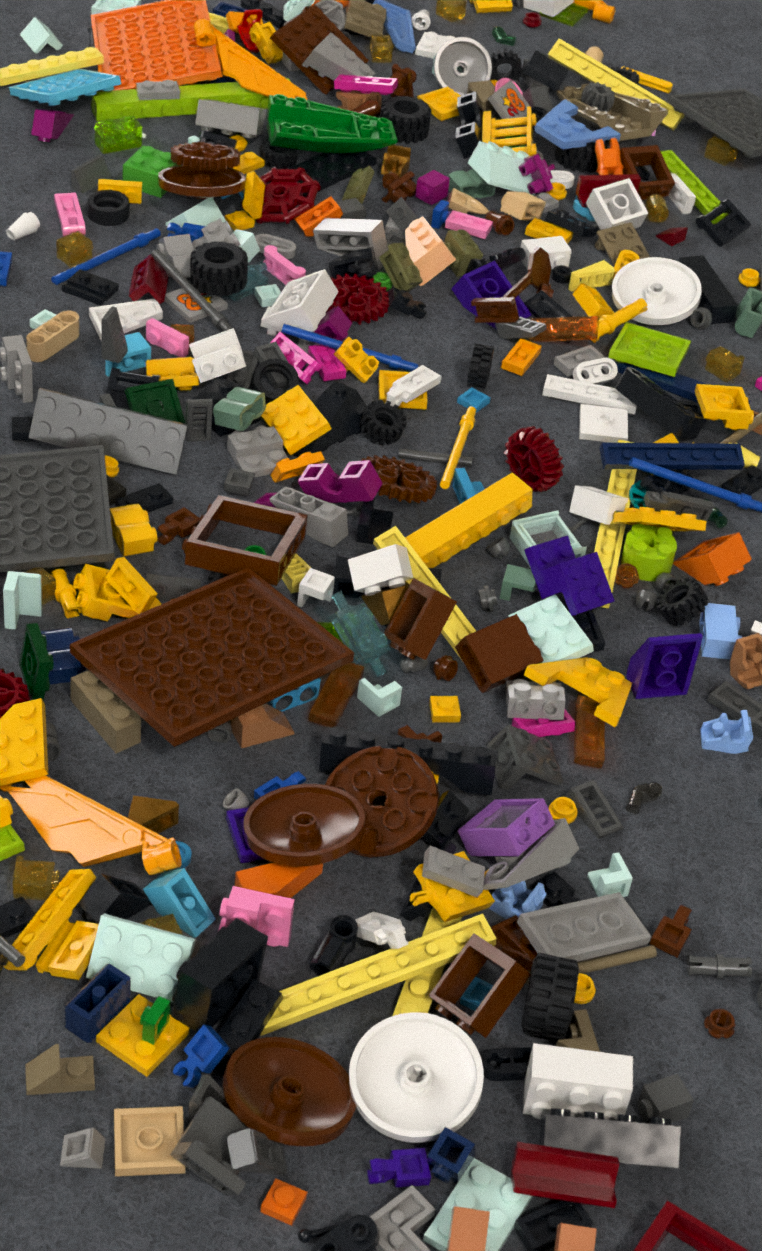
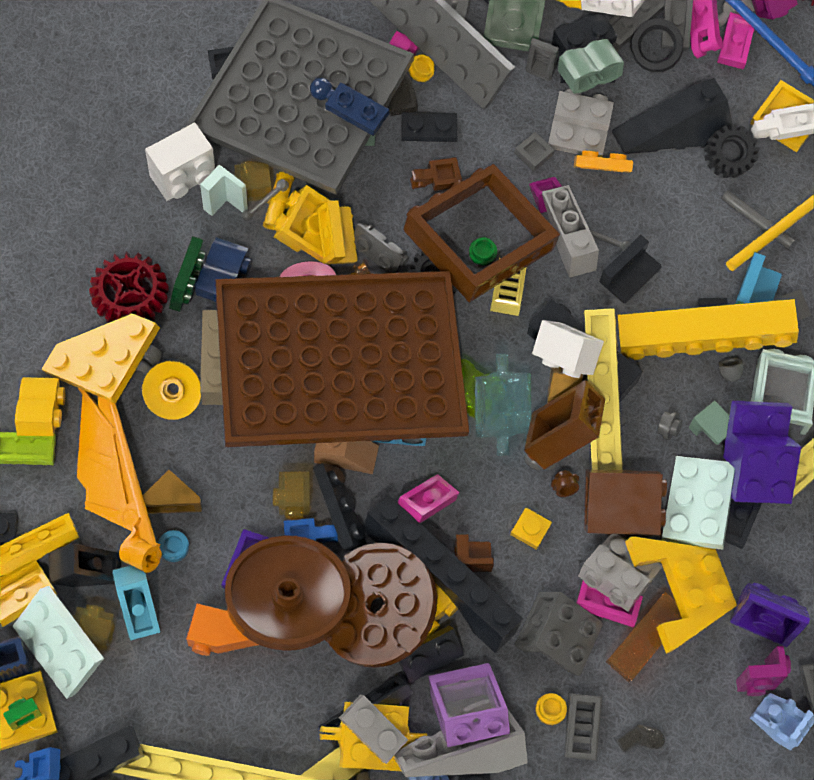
camera: 35 degrees right, 25 degrees up
(34, 879) = (25, 497): clear yellow brick -> none
(64, 574) = (282, 185): none -> dark grey hinge
(80, 493) = (350, 105): none -> dark blue plate
(95, 738) = (162, 400): none -> yellow dish
(132, 530) = (389, 157): yellow brick -> none
(218, 975) = (101, 703): black brick -> none
(235, 800) = (262, 522): light grey hinge -> none
(245, 769) = (293, 495): none -> clear yellow brick
(262, 911) = (171, 661): bright pink plate -> none
(290, 758) = (340, 506): none -> black plate
(295, 419) = (641, 104): yellow plate -> none
(316, 585) = (507, 323): white panel -> none
(335, 947) = (228, 731): black piece -> none
(336, 695) = (438, 456): clear orange plate -> none
(355, 719) = (428, 498): none -> dark pink plate
(356, 360) = (763, 56): yellow hips -> none
(356, 483) = (623, 220): magenta arch -> none
(379, 698) = (478, 480): light aqua panel -> none
(382, 930) = (274, 739): white hinge -> none
(403, 479) = (705, 245): reddish brown gear -> none
(692, 705) = (759, 678): none -> magenta bracket

